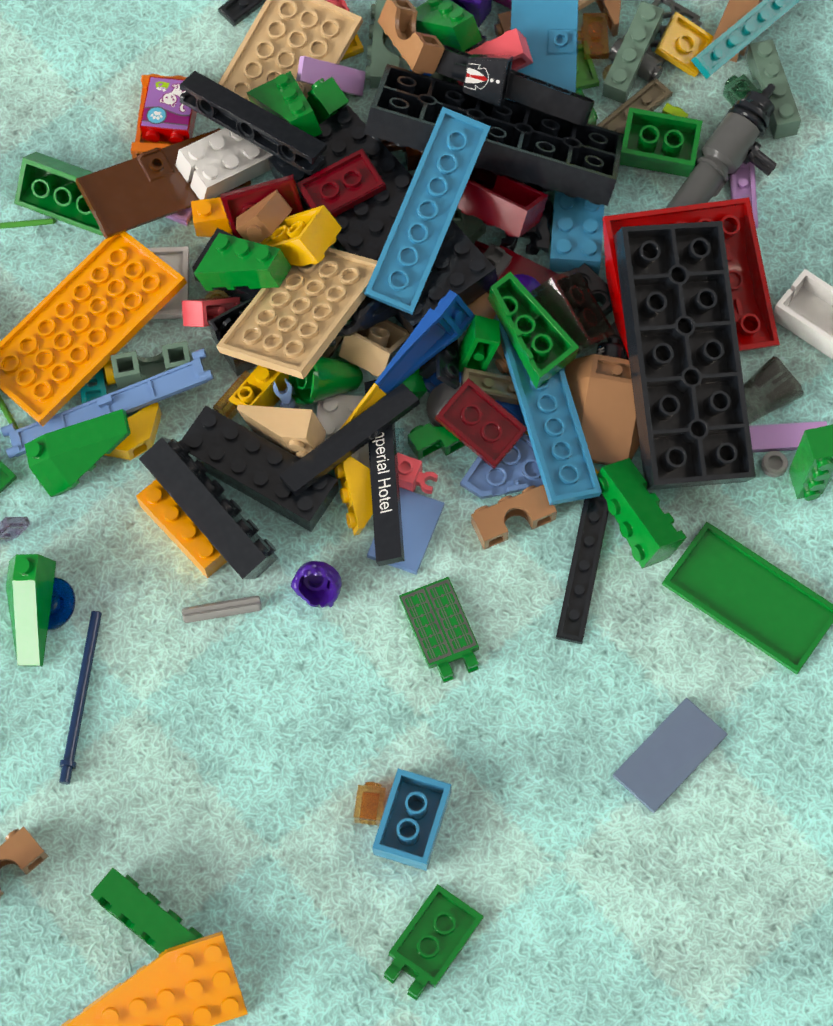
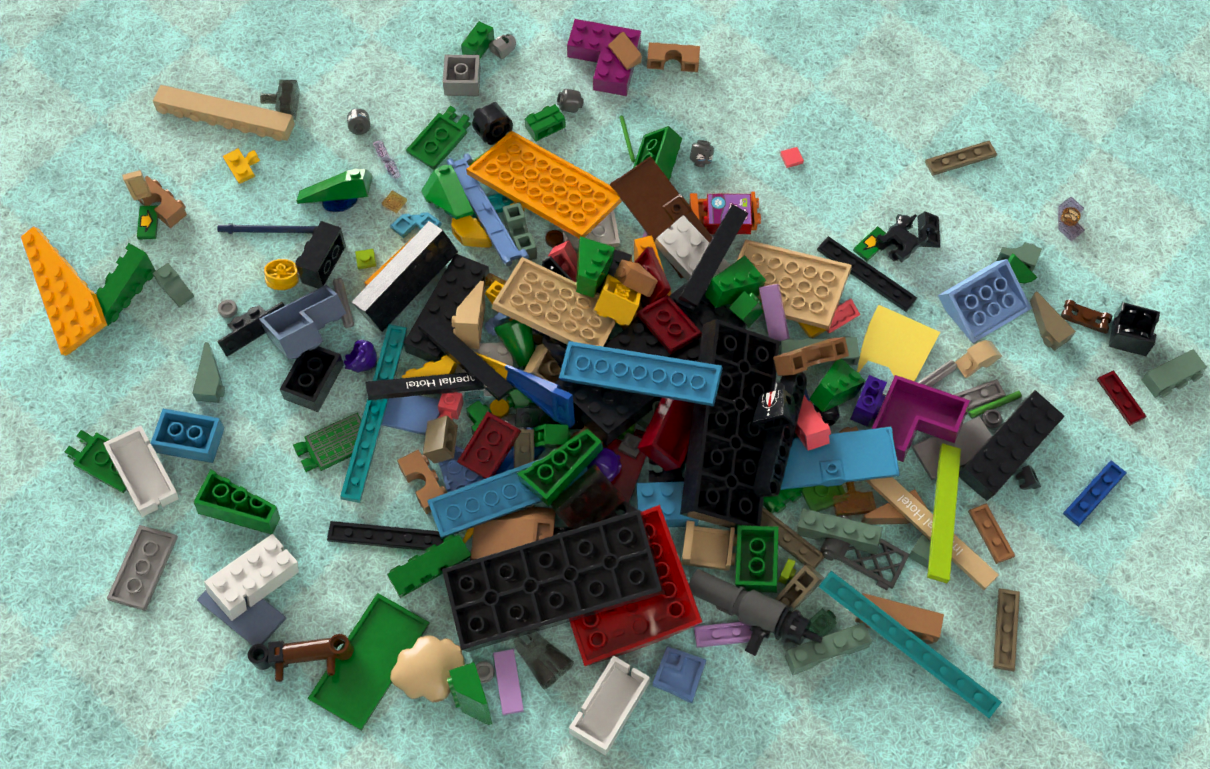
camera: 80 degrees right, 5 degrees down
(33, 888) = (147, 223): none -> green tile
(63, 533) = (394, 201): none -> clear orange tile
(65, 131) = (701, 153): none -> dark grey head
(88, 32) = (791, 157): none -> coral tile
(104, 495) = (408, 222): none -> medium azure tile
(147, 628) = (320, 255): none -> black brick
(153, 576) = (365, 259): none -> lime plate
(156, 845) = (173, 285): none -> sand green arch
(163, 329) = (554, 238): none -> reddish brown tile
(165, 687) = (279, 275): none -> yellow wheel
(205, 770) = (227, 308): none -> light grey tile
(239, 734) = (245, 329): none -> black bracket
(259, 660) = (297, 324): none -> sand blue piece
(323, 793) = (208, 382): none -> sand green slope
(341, 648) = (312, 378): none -> black brick
(370, 803) = (201, 406): clear orange brick -> none
(412, 571) = (373, 417): none -> teal plate
(415, 417) = (499, 408): none -> yellow tile
(461, 485) = (440, 439): none -> dark tan brick
(465, 880) = (141, 471): none -> white piece
(521, 761) = (235, 505): none -> green wedge
(599, 887) = (142, 568): none -> light grey tile
(634, 732) = (251, 575): none -> white piece
(636, 189) = (708, 547): none -> tan panel
(682, 42) = (861, 572): yellow tile -> none
(697, 102) = (800, 587): none -> dark tan slope
(740, 698) = (281, 654): none -> reddish brown piece
(772, 519) = (425, 668): none -> tan piece
(791, 246) = (679, 673): none -> medium blue plate

